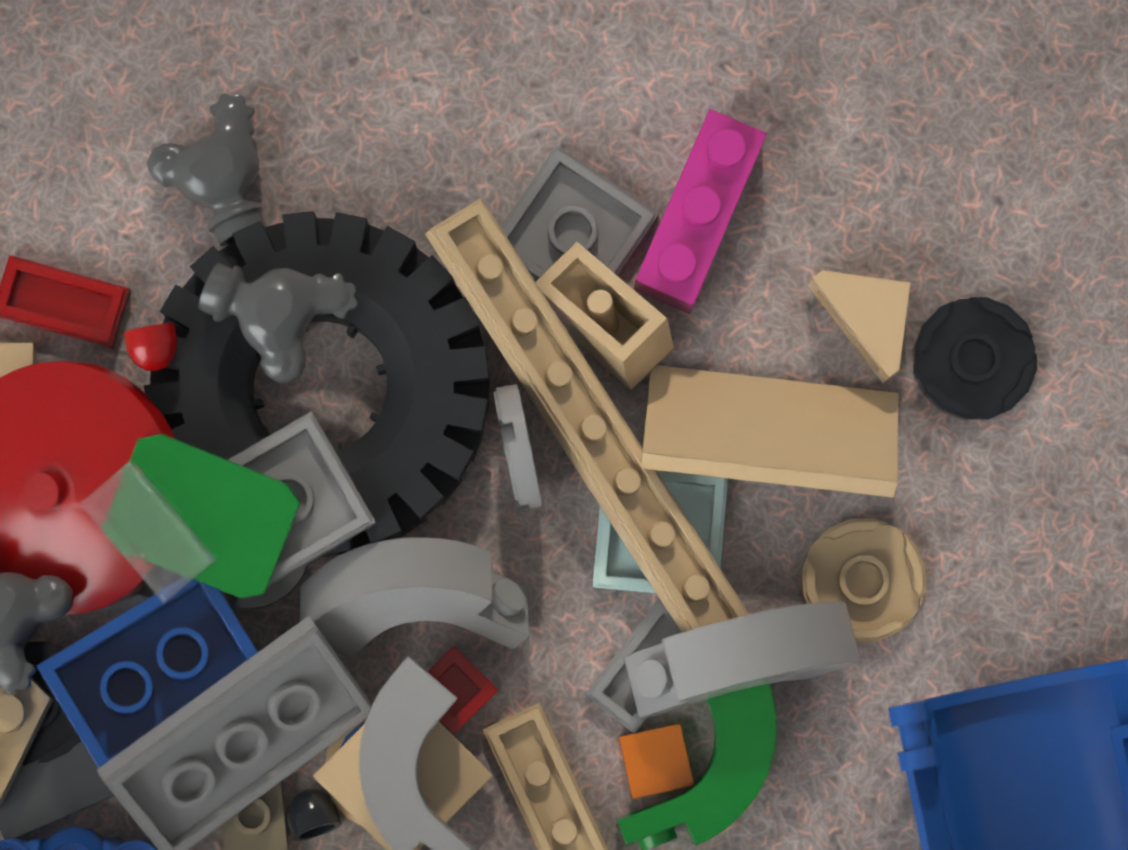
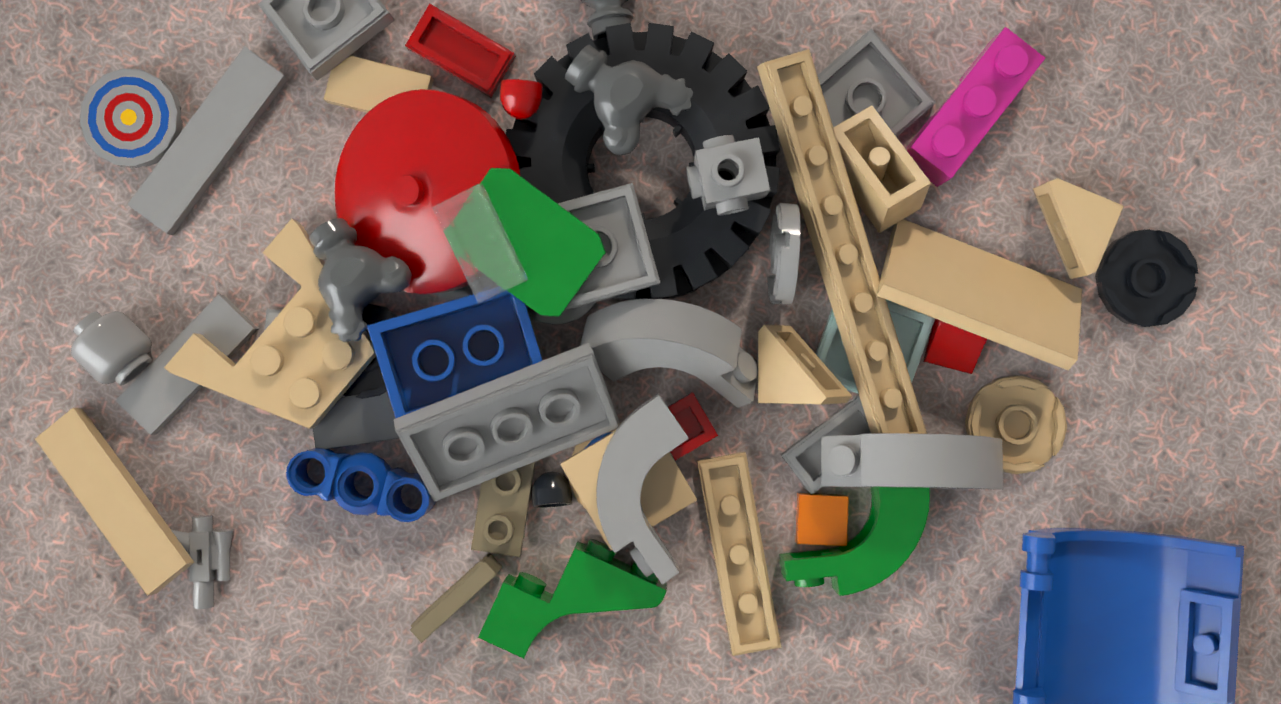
camera: 20 degrees right, 5 degrees up
(428, 350) = (740, 159): none -> light grey brick
(568, 586) = (793, 372): none -> tan slope
(761, 507) = (953, 347): none -> red slope

